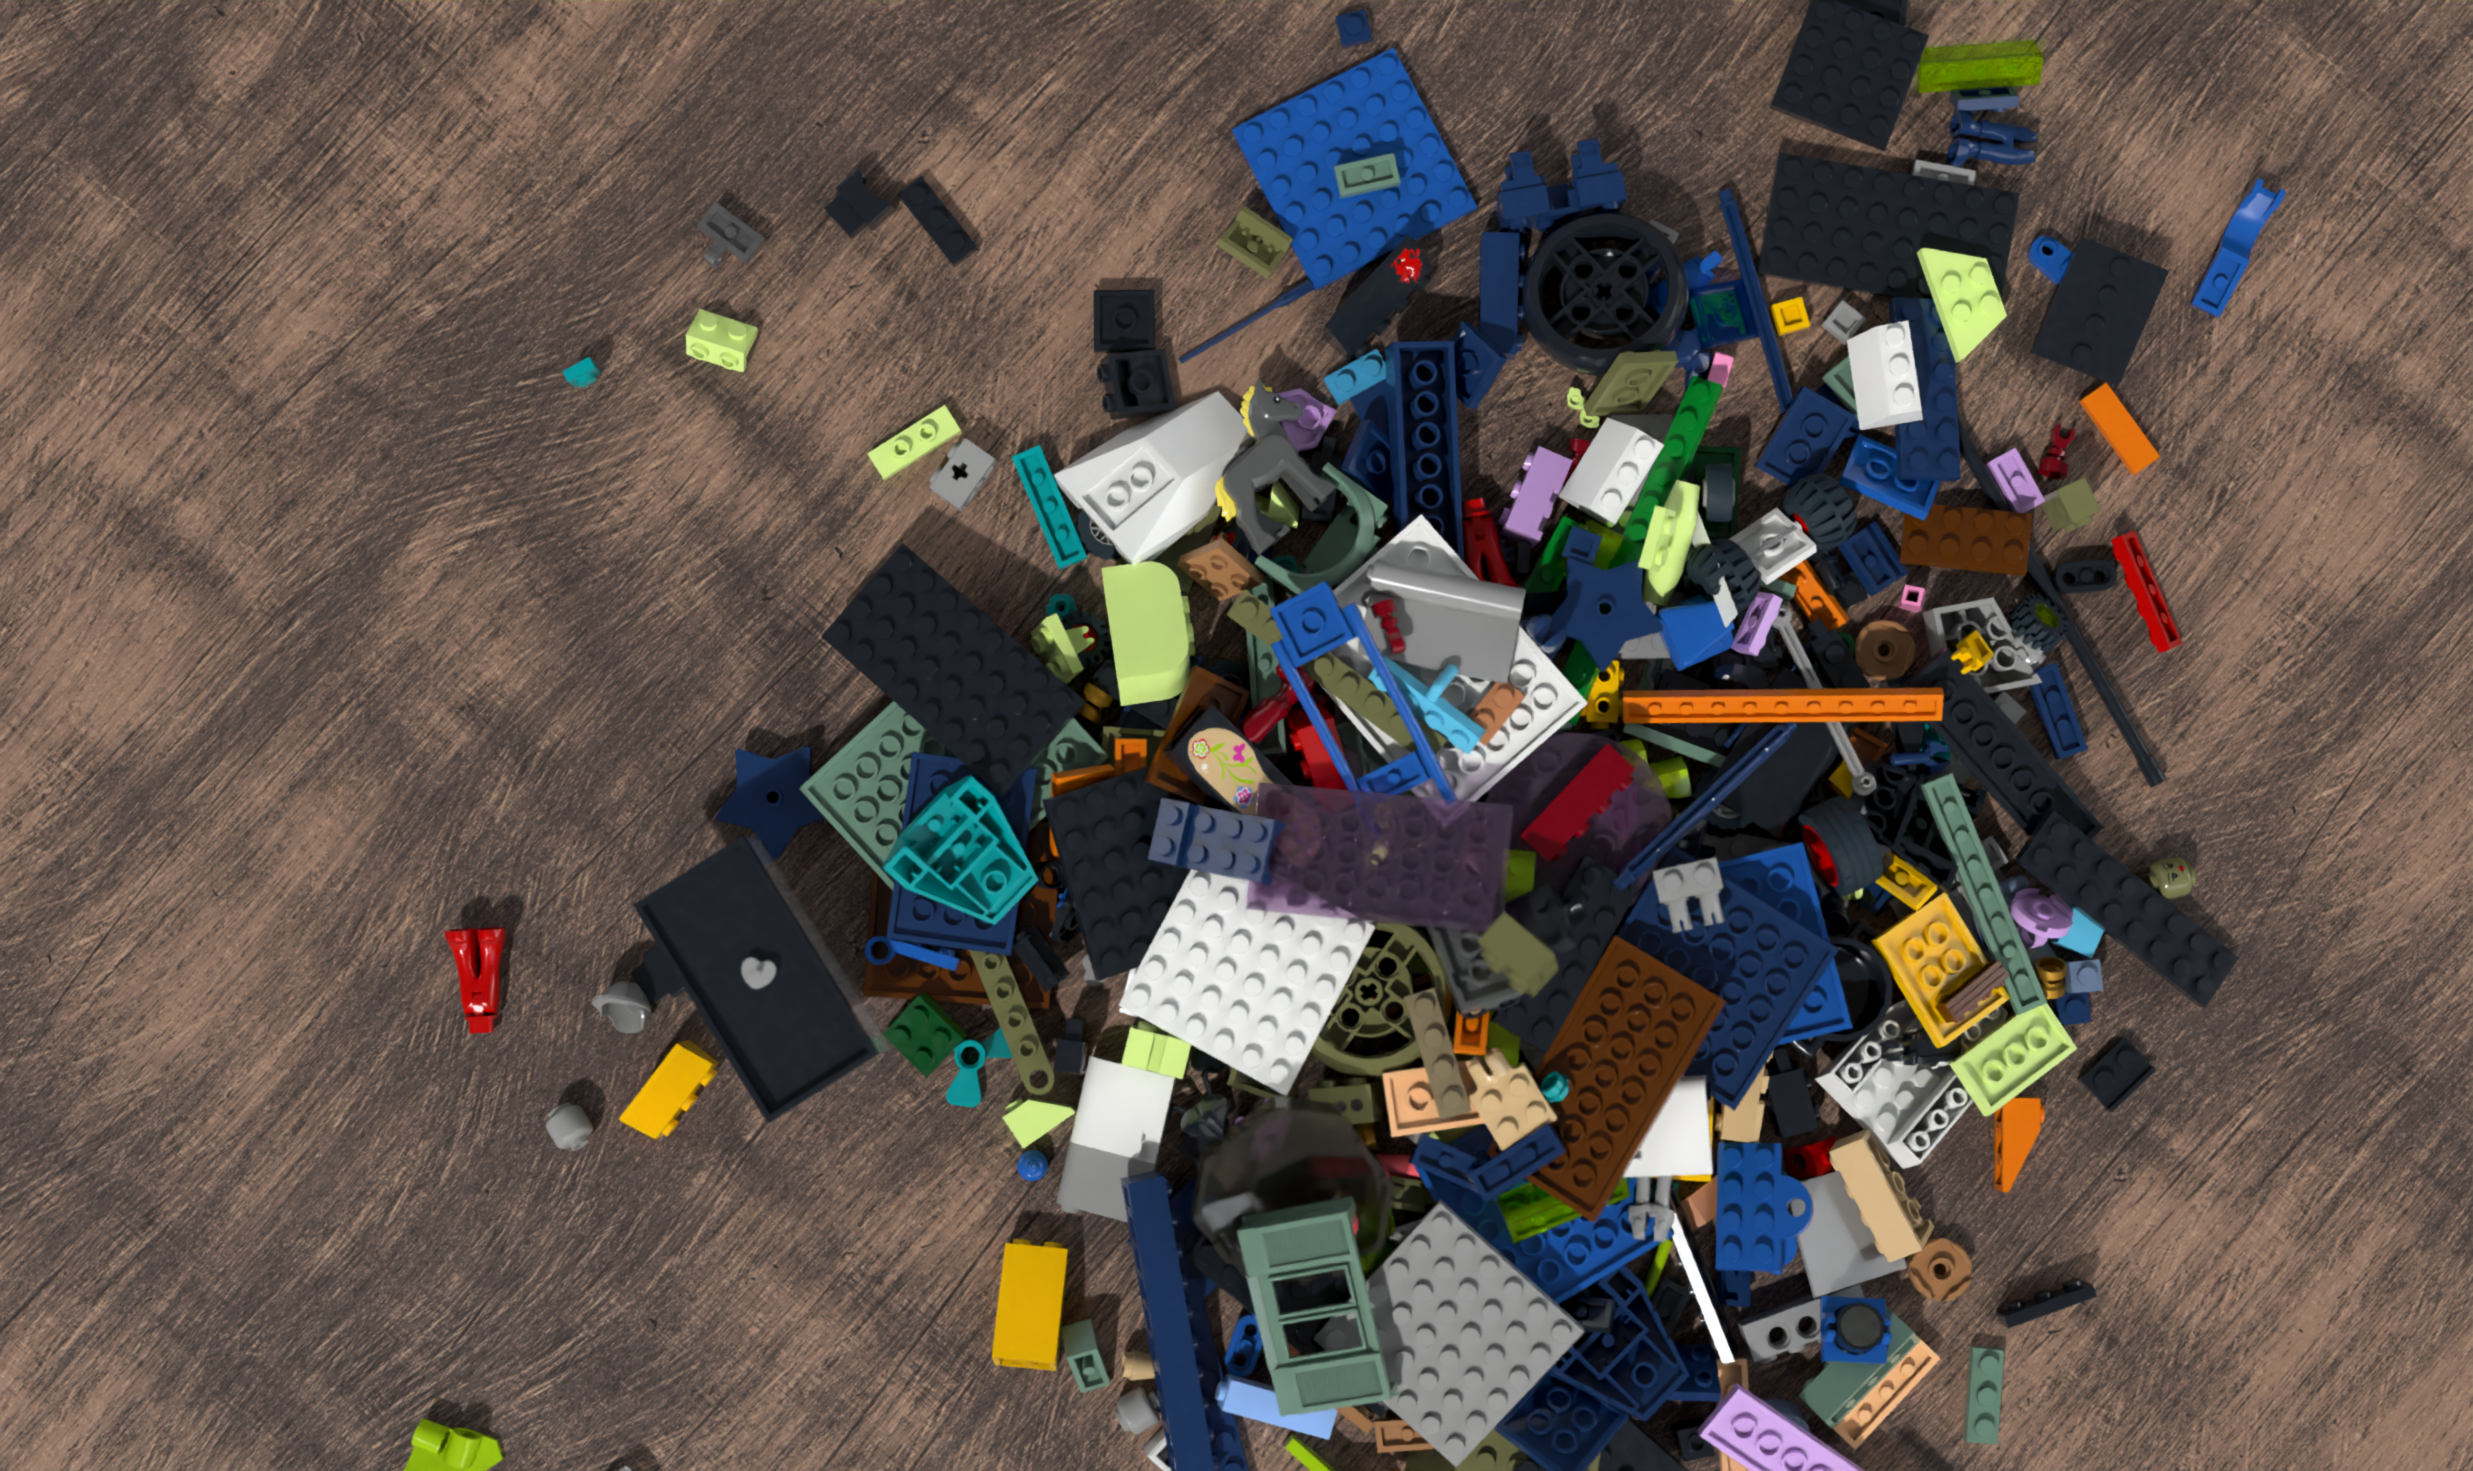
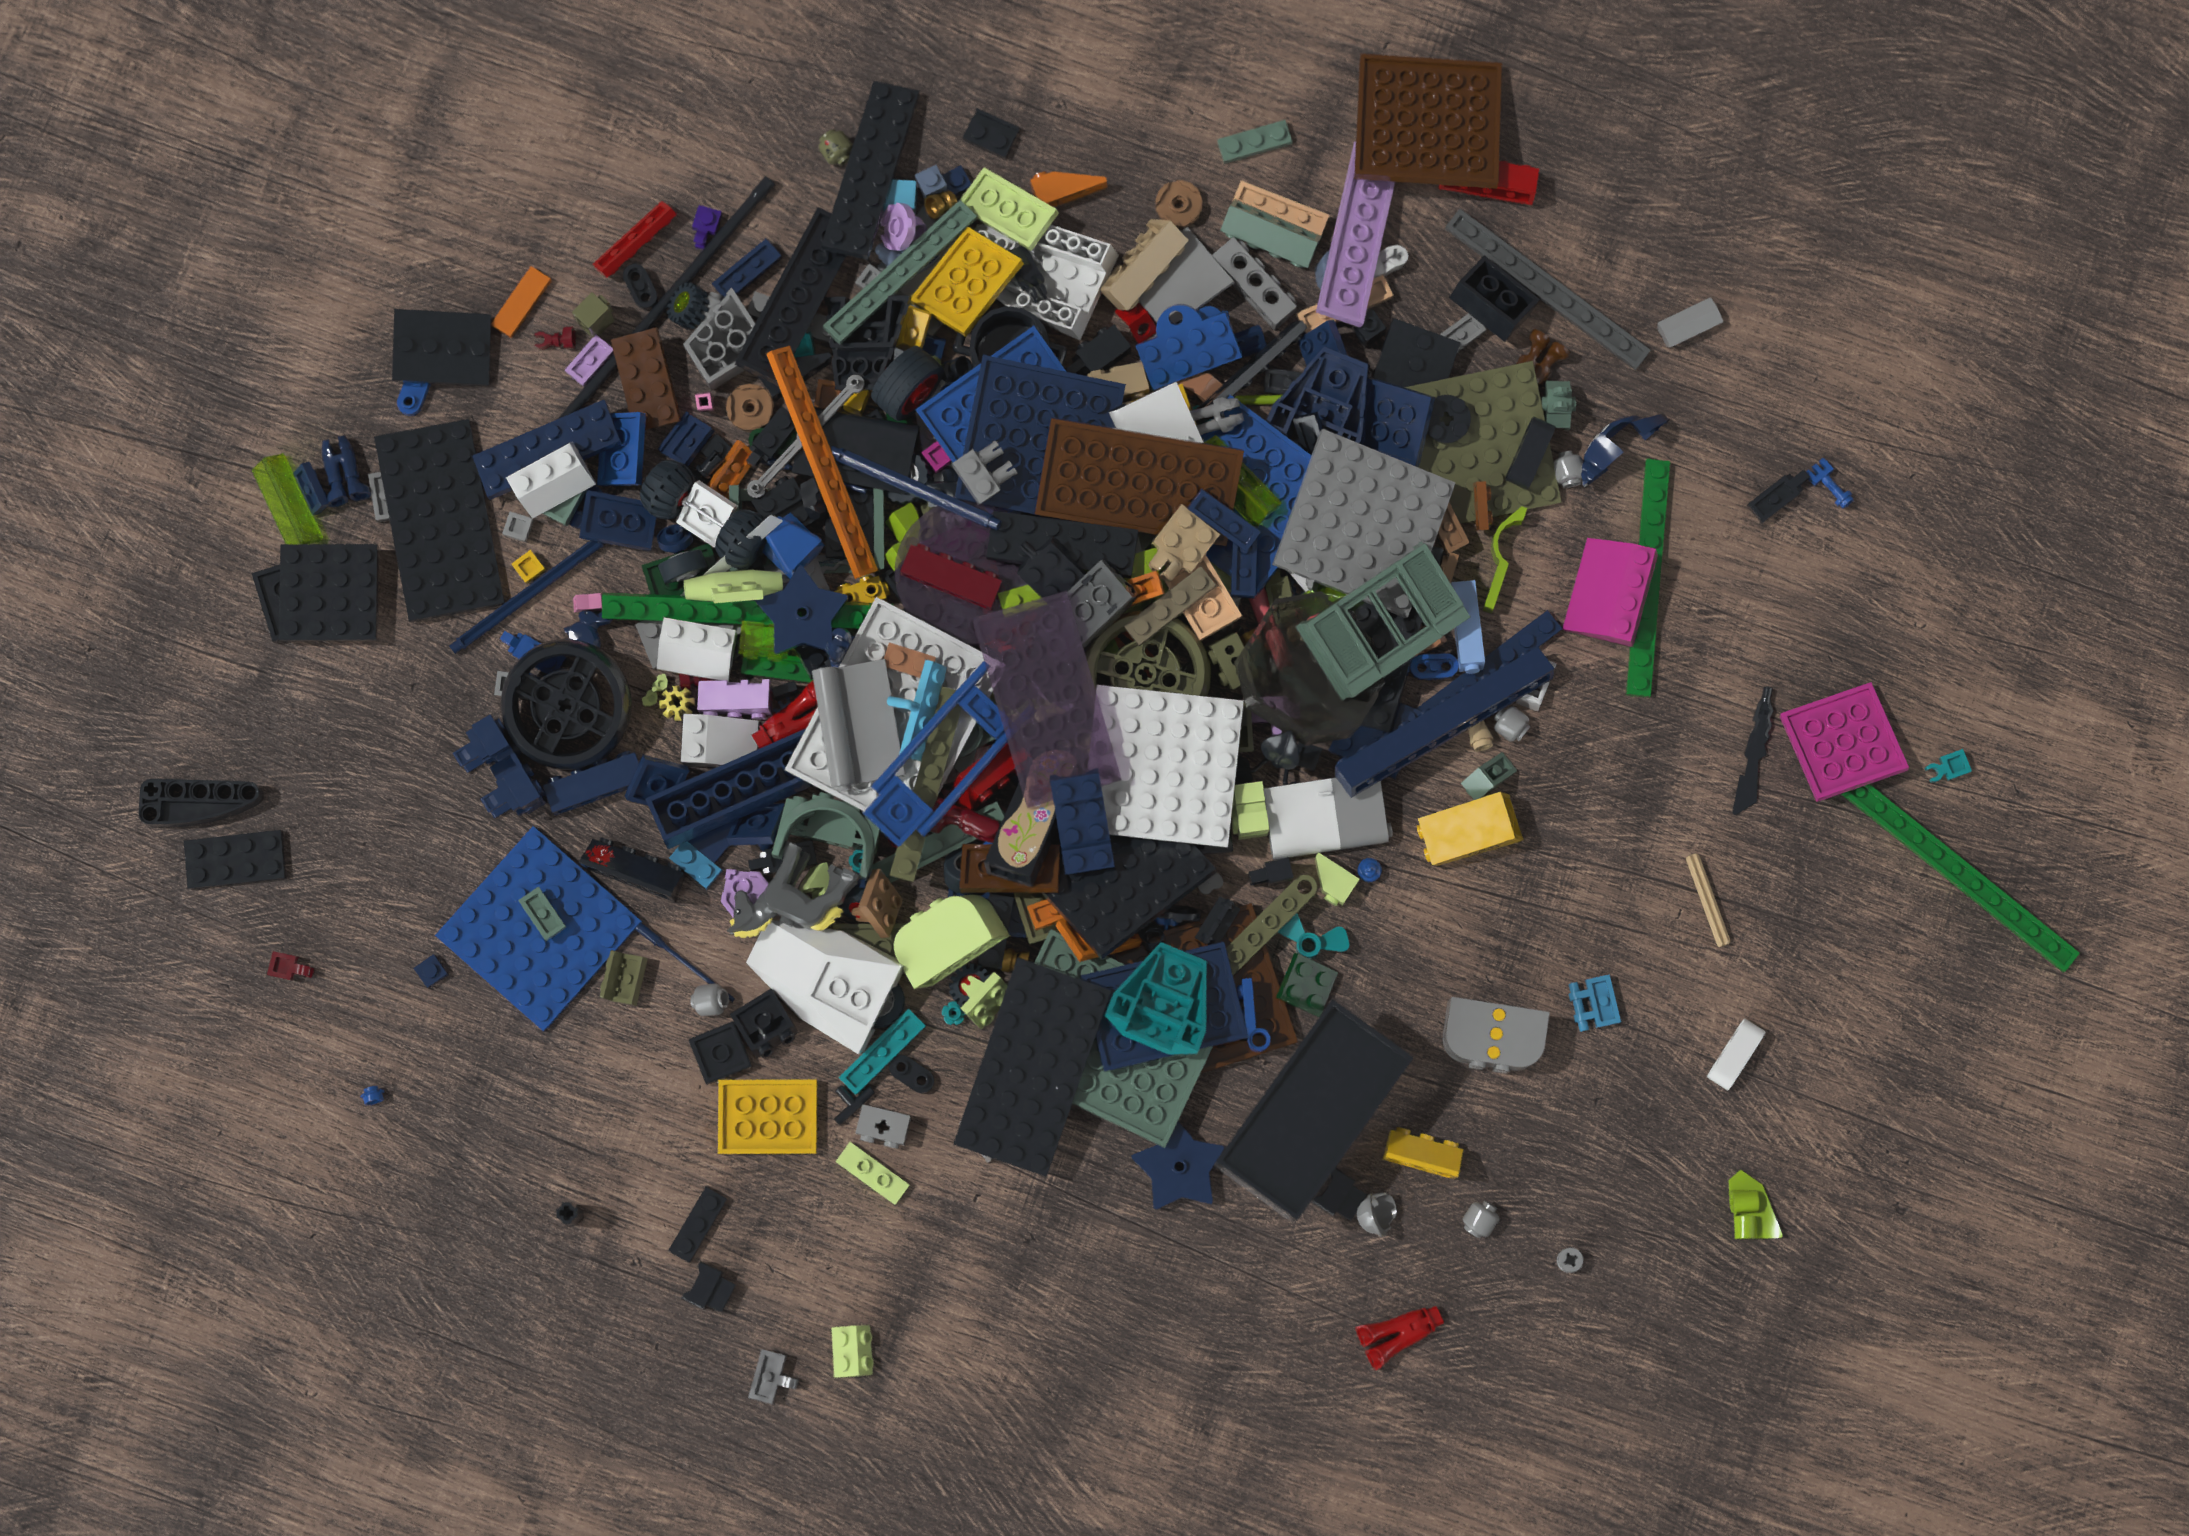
camera: 110 degrees left, 5 degrees down
(486, 1209) = (1566, 1262): none -> light grey wheel
(582, 373) = (918, 1444): teal plate -> none
(758, 973) = (1309, 1108): light grey piece -> none
(763, 1378) = (1601, 1000): none -> dark azure plate
(772, 1233) = (1494, 1035): none -> light grey brick
(1003, 450) = (853, 1103): none -> black piece
(1005, 77) = (561, 1213): none -> black axle
(1012, 534) = (911, 1074): none -> black plate
(1028, 347) = (767, 1116): none -> yellow plate
(1190, 332) = (710, 999): none -> light grey head
(1384, 611) = (884, 750): dark red piece -> none
(1494, 456) = (716, 739): none -> white slope
(1518, 955) = (1078, 571): olive piece -> none
(1555, 1087) = (1159, 514): teal plate -> none
(1562, 420) = (668, 703): none -> light yellow piece
(1581, 545) = (761, 646): dark blue plate -> none
(1630, 383) = (626, 659): olive plate -> none
(1722, 314) = (546, 615): tile -> none
(1735, 846) = (936, 457): none -> dark pink plate
(1756, 498) = (674, 539): none -> dark blue plate
(1756, 624) = (769, 502): lavender plate -> none
(1855, 1328) = (1243, 244): piece -> none
(1923, 756) = (818, 350): dark blue bar -> none
(1963, 297) = (469, 446): yellowish green wing -> none
(1972, 652) = (730, 342): yellow plate -> none
(1972, 991) = (973, 253): reddish brown piece -> none
(2045, 1302) = (1172, 123): black plate -> none
(2133, 685) = (705, 223): none -> dark purple plate
(2235, 249) = (356, 269): blue piece -> none

